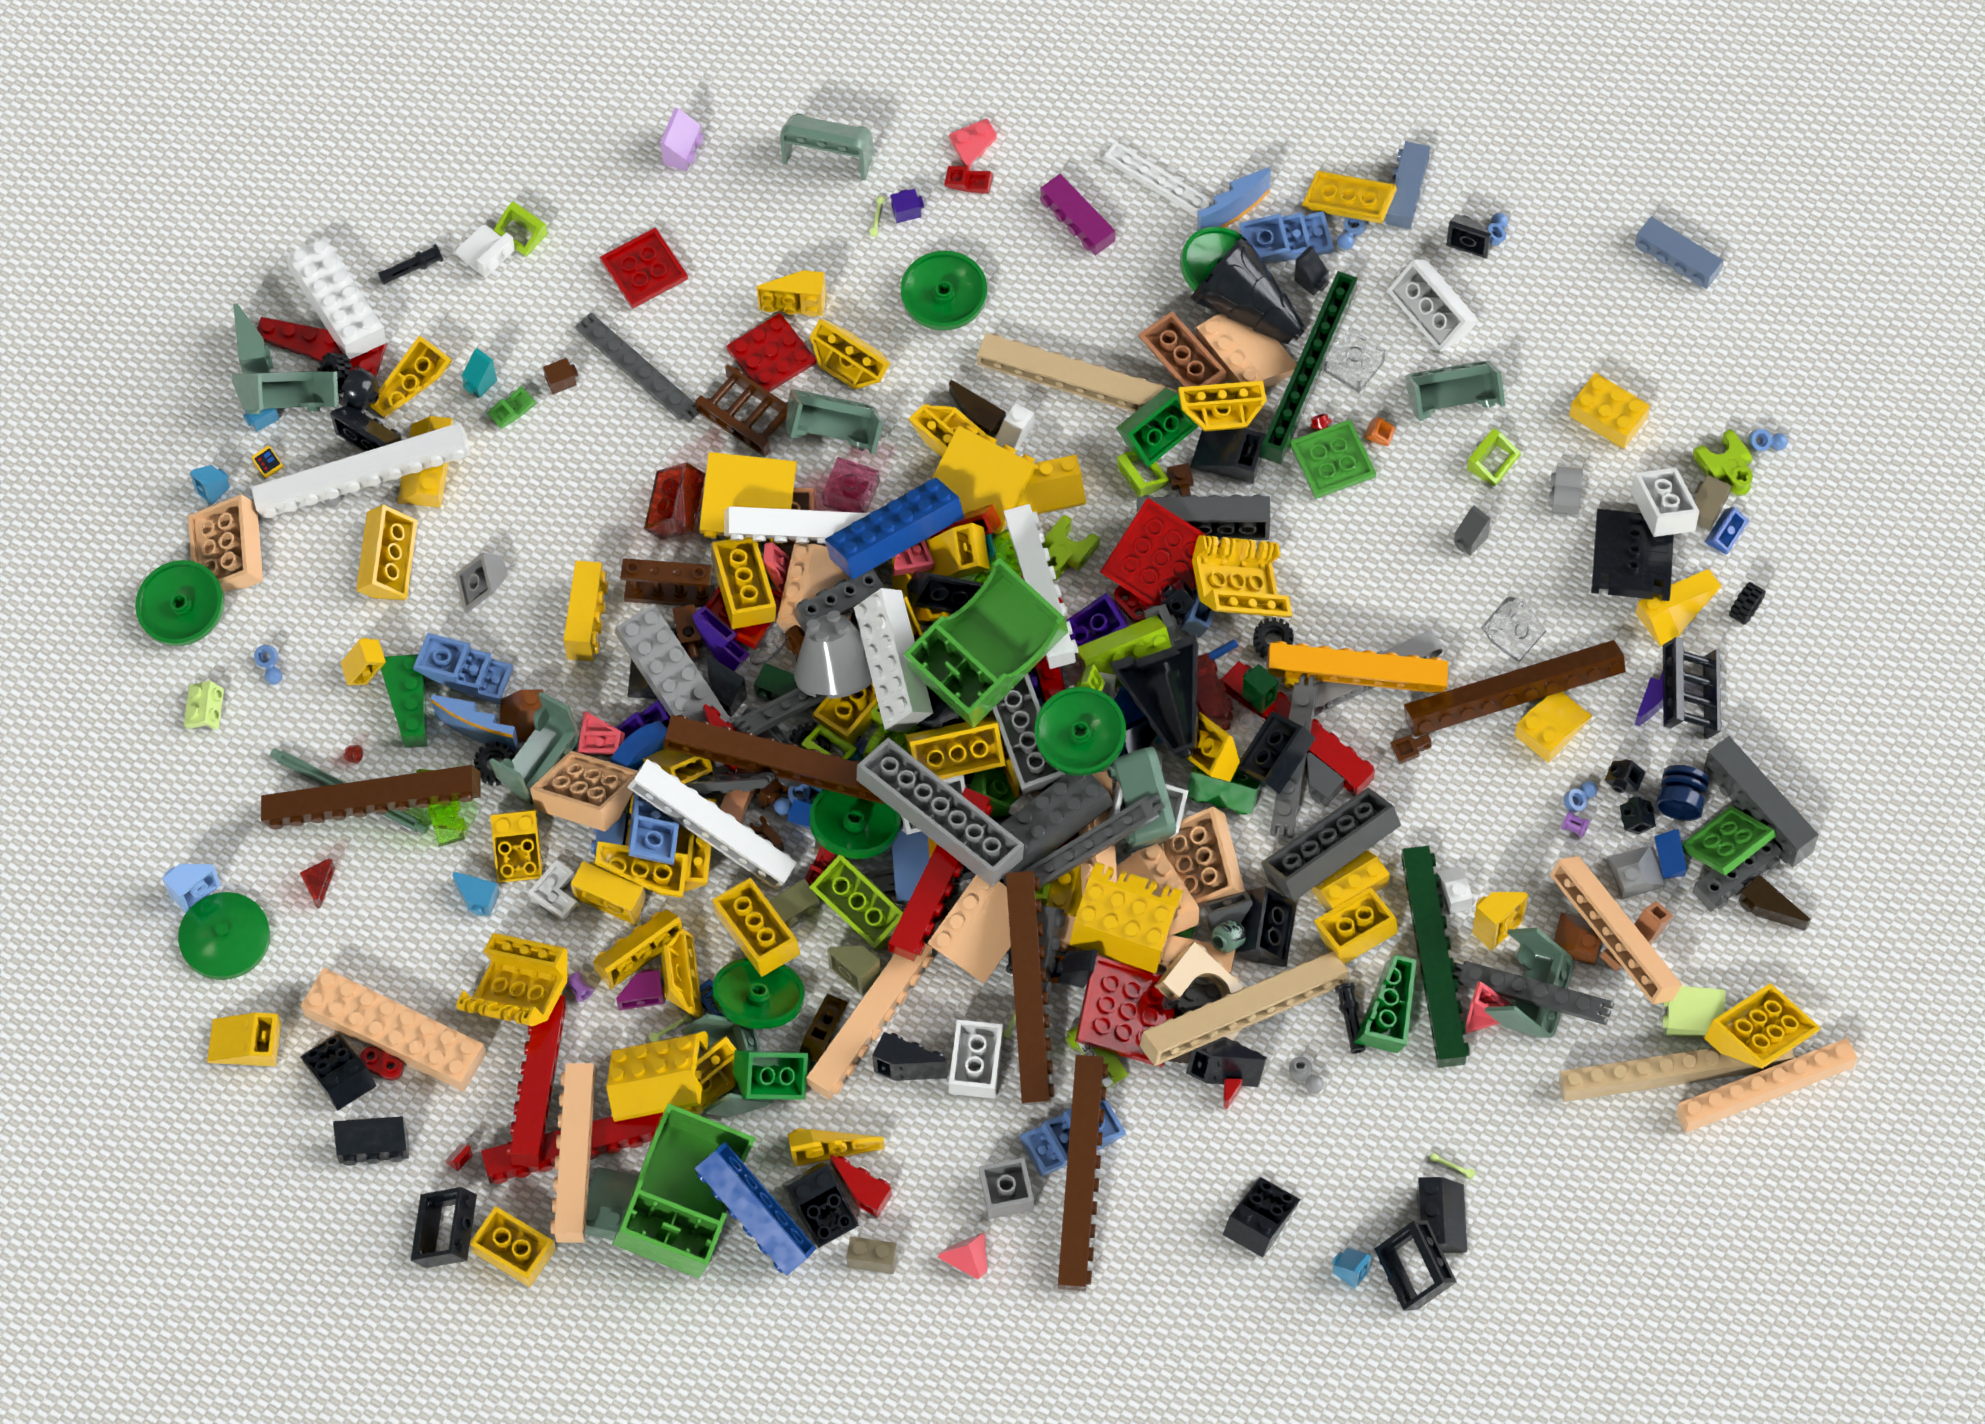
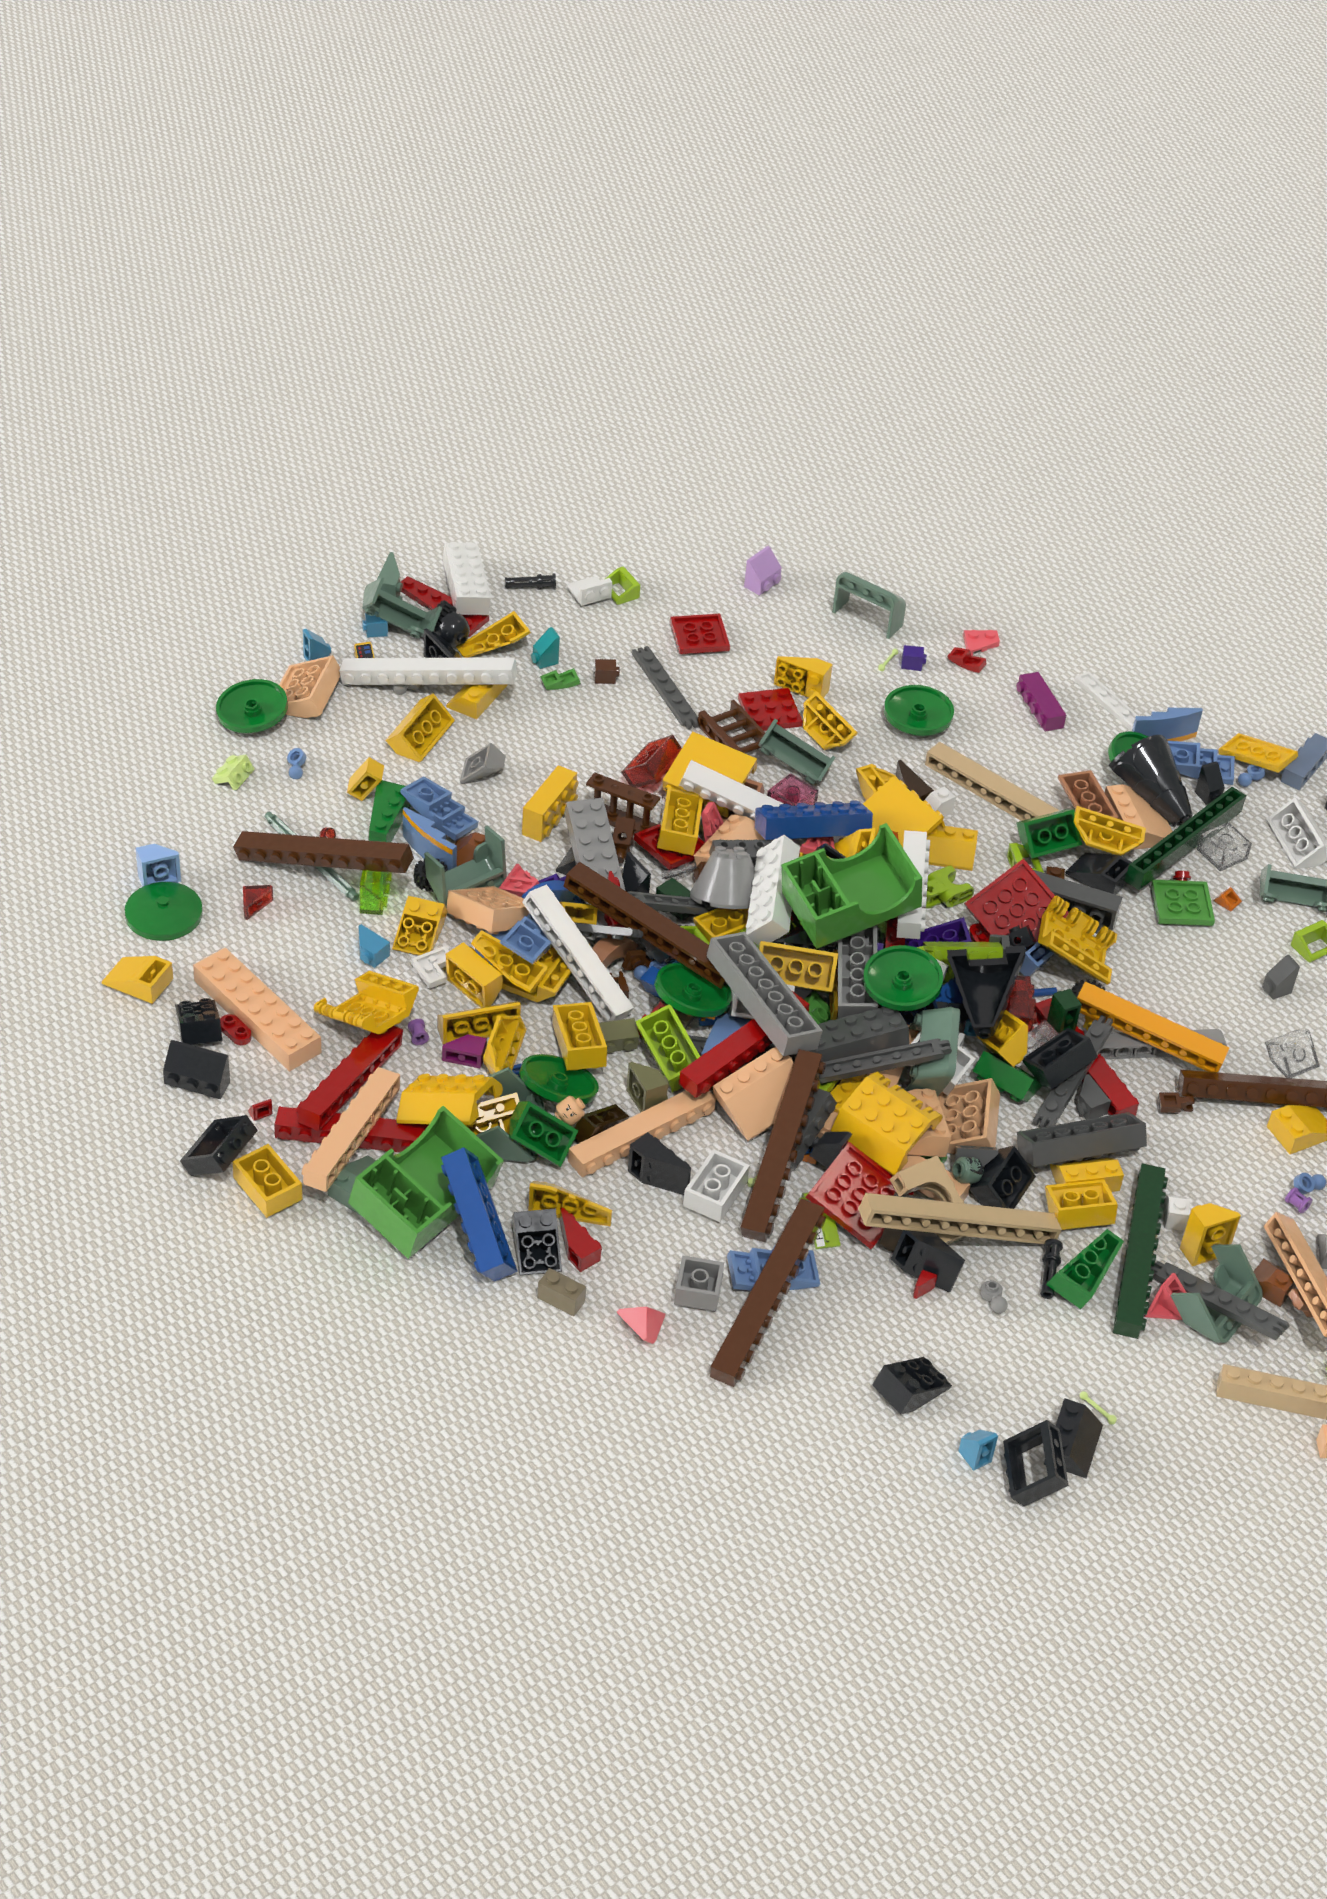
camera: 15 degrees right, 20 degrees down
(719, 639) = (645, 849): dark purple slope -> none
(790, 1033) = (570, 1110): none -> light nougat head

